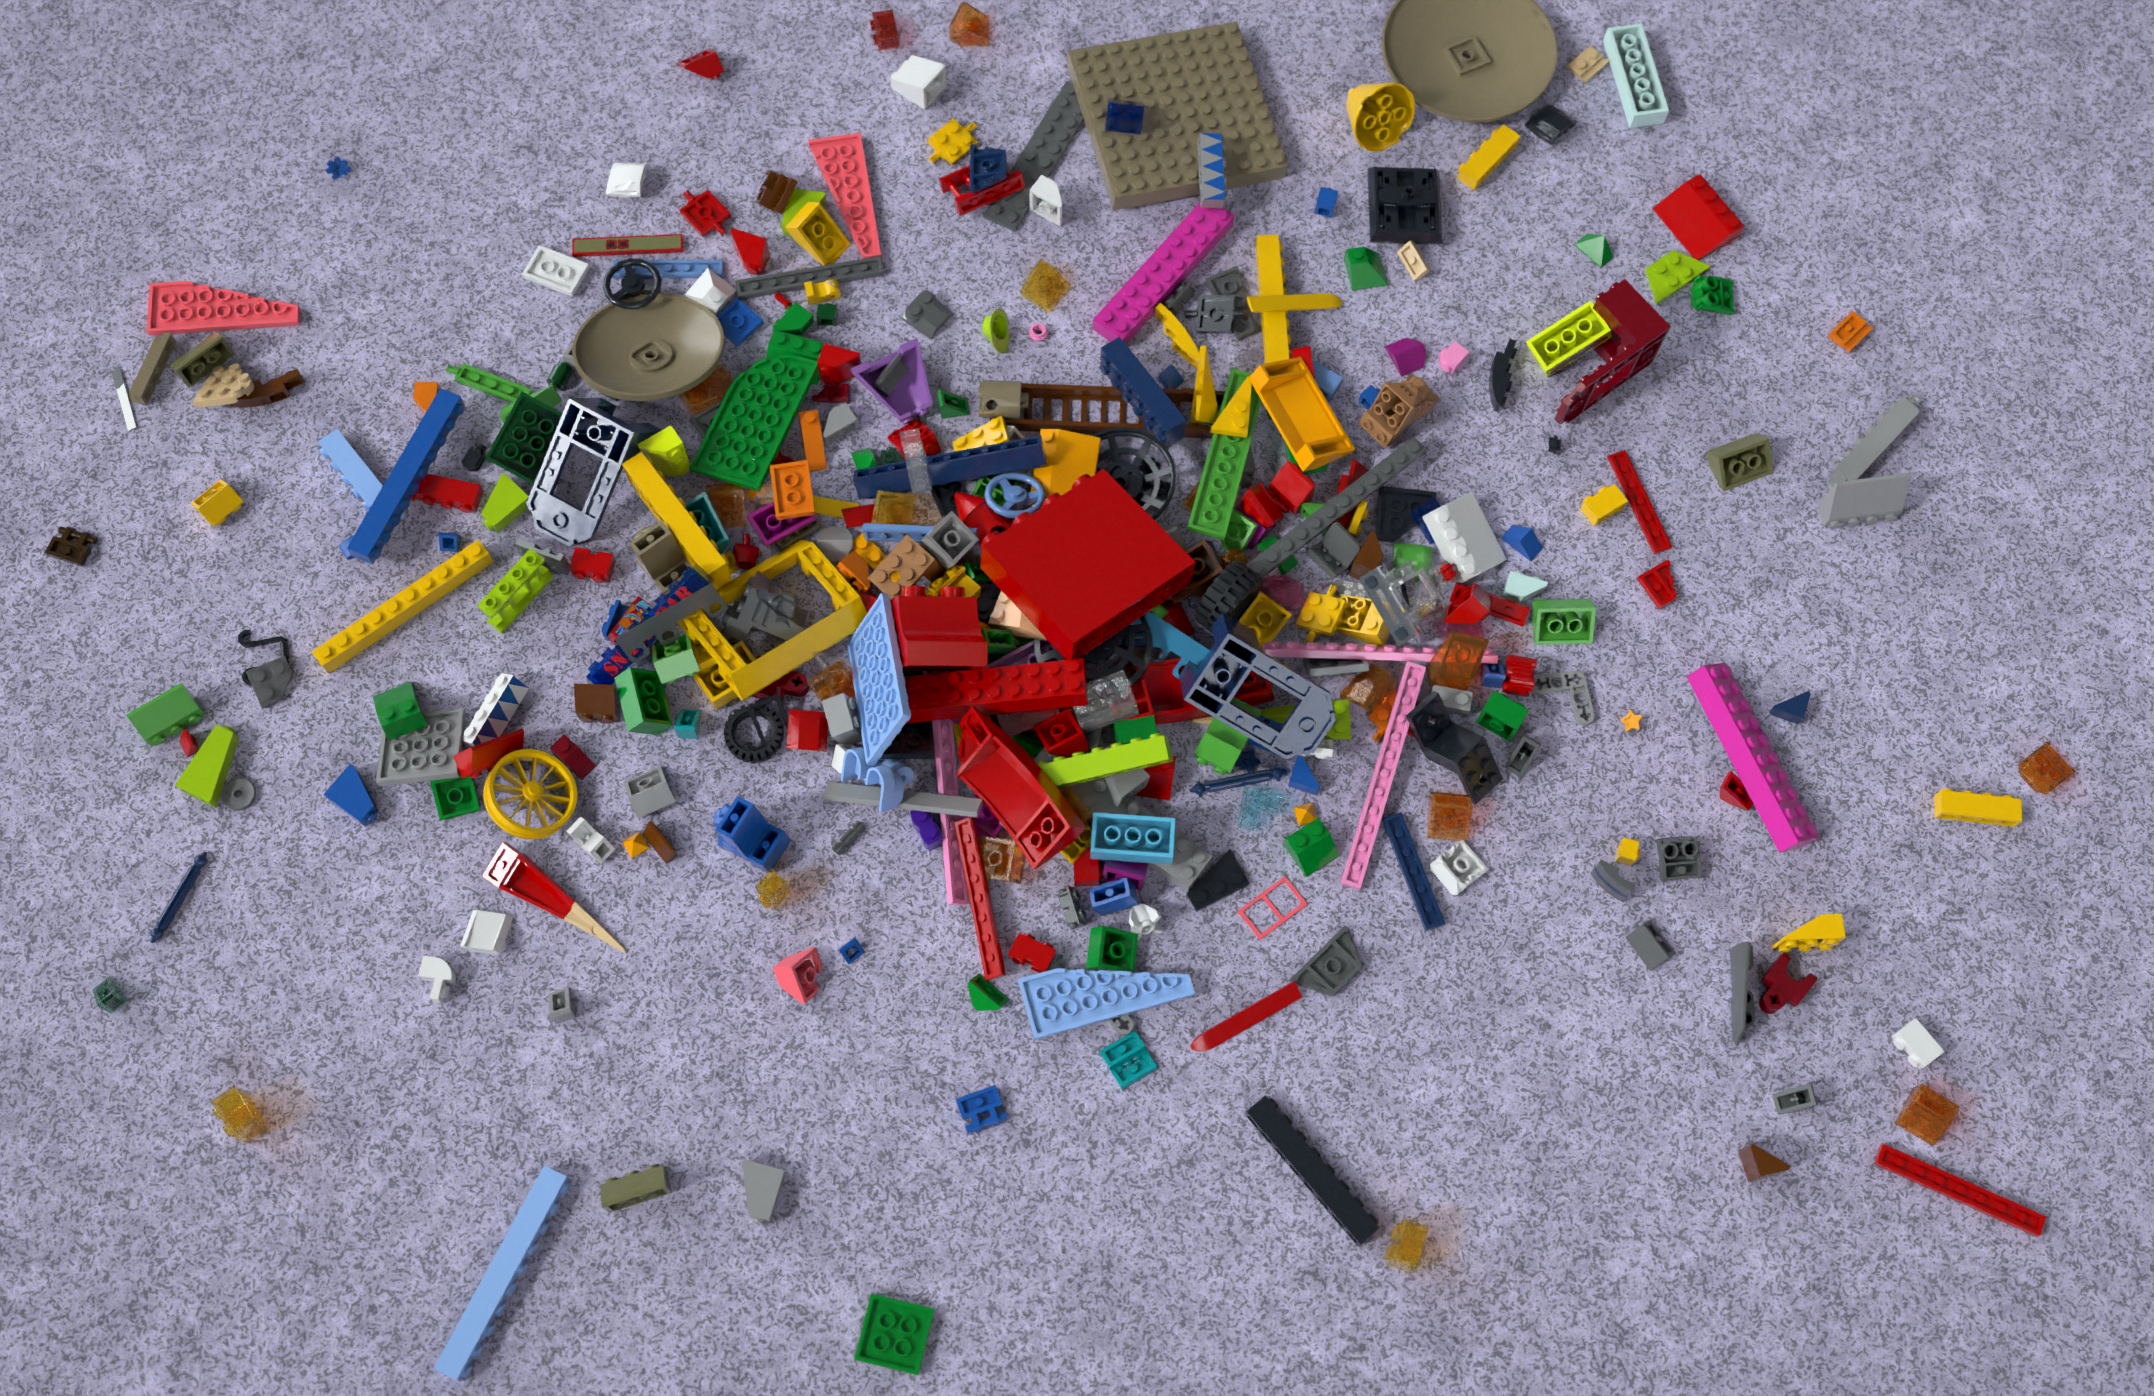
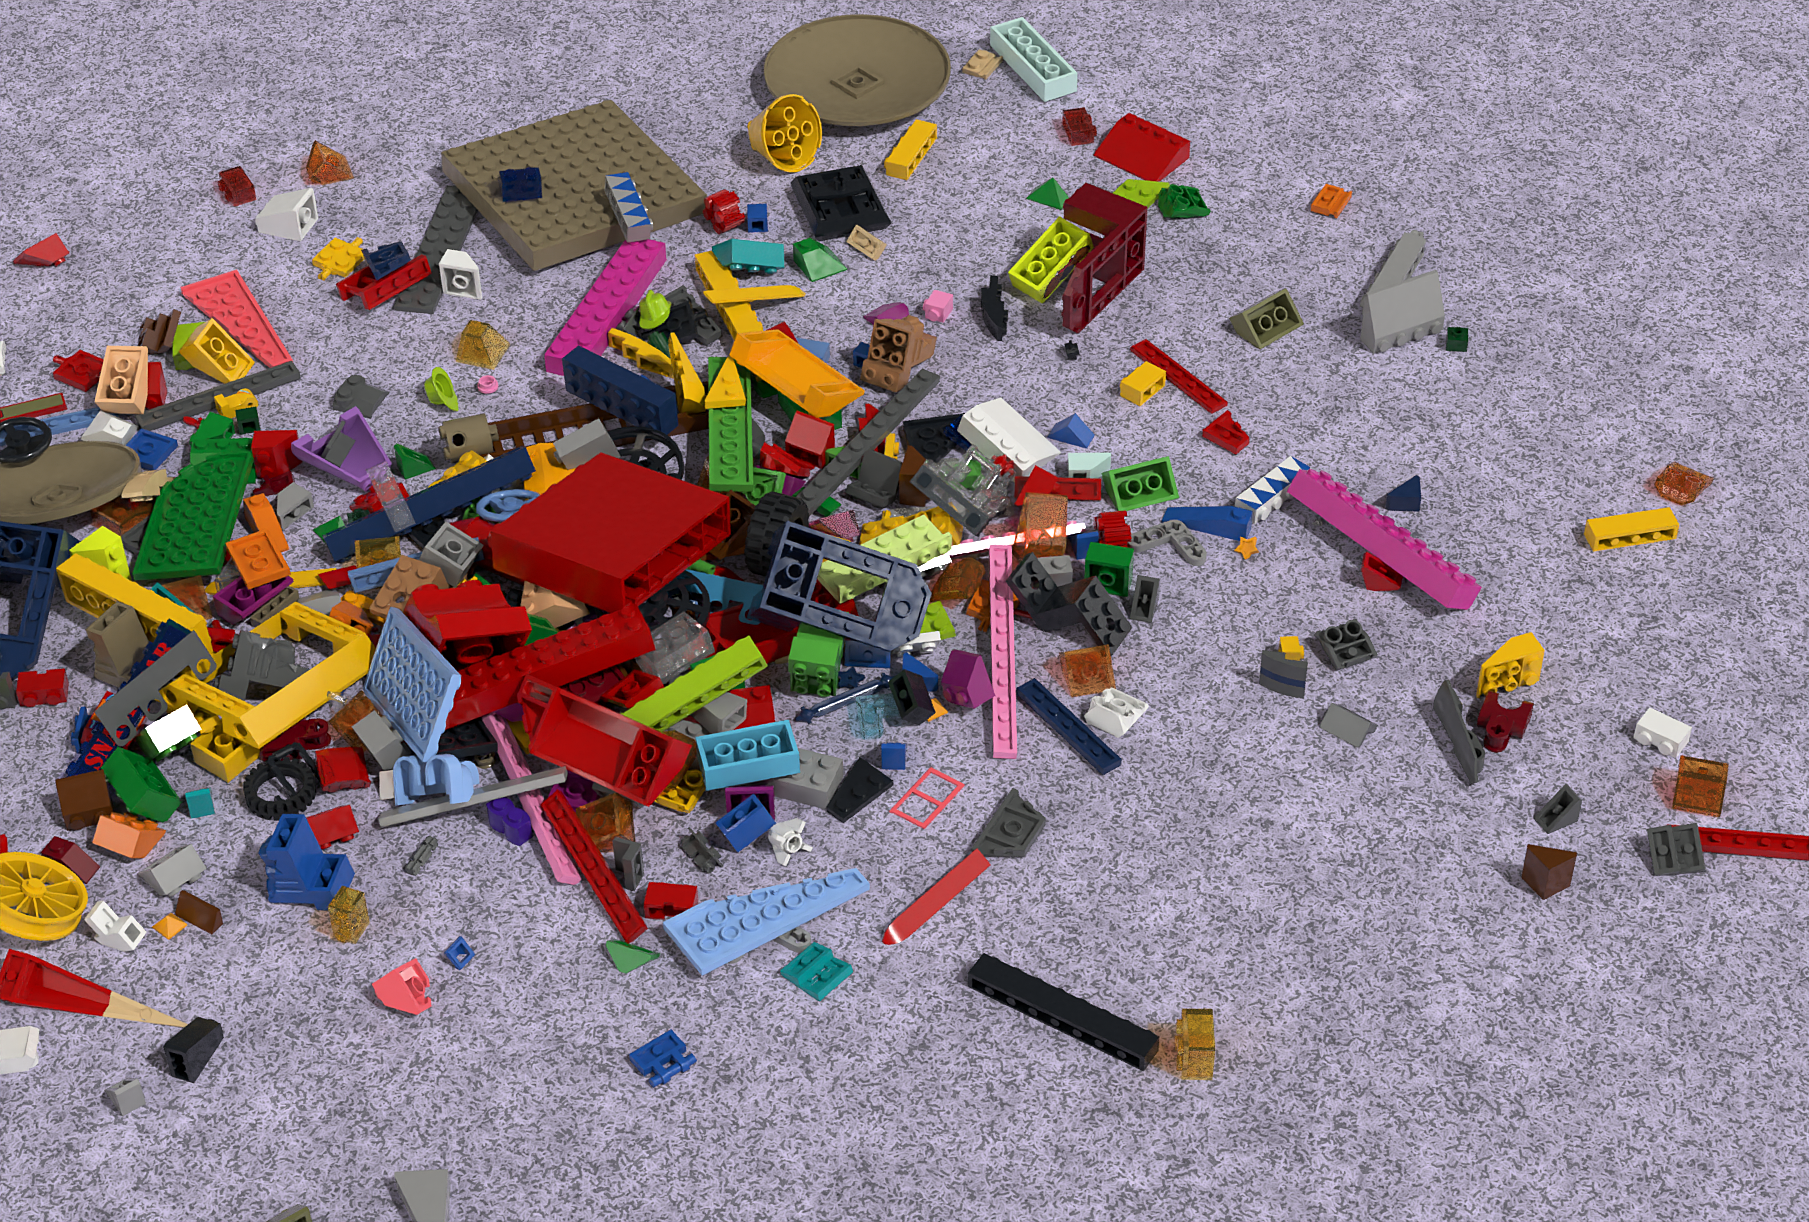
camera: 15 degrees left, 25 degrees down
(622, 747) = (127, 834): none -> orange slope
(623, 981) = (192, 1048): none -> black slope
(722, 375) = (146, 485): none -> tan slope
(731, 248) = (123, 380): none -> light nougat slope
(782, 784) = (333, 825): none -> red slope
(1012, 908) = (629, 860): none -> dark grey panel
(1087, 870) = (706, 810): red slope -> none
(1096, 449) = (584, 445): none -> light grey slope
(1111, 949) = (758, 869): green slope -> none
(1197, 333) = (660, 342): none -> dark green brick
(1202, 294) = (653, 310): none -> lime piece
(1259, 854) = (893, 755): none -> blue slope
(1290, 806) = (911, 697): none -> black brick
(1297, 188) = (723, 211): none -> red brick
(1304, 253) = (750, 255): none -> teal slope
(1311, 847) = (948, 731): green slope -> none
(1320, 651) = (913, 542): none -> yellowish green bracket
(1340, 805) = (966, 680): none -> magenta slope
(1550, 124) = (964, 114): black slope -> none
(1613, 683) = (1215, 520): none -> blue slope
(1650, 171) = (1078, 126): none -> clear red brick
(1676, 664) = (1270, 490): none -> white brick
(1880, 1174) = (1676, 849): none -> dark grey slope
(1904, 536) = (1457, 339): none -> dark green plate

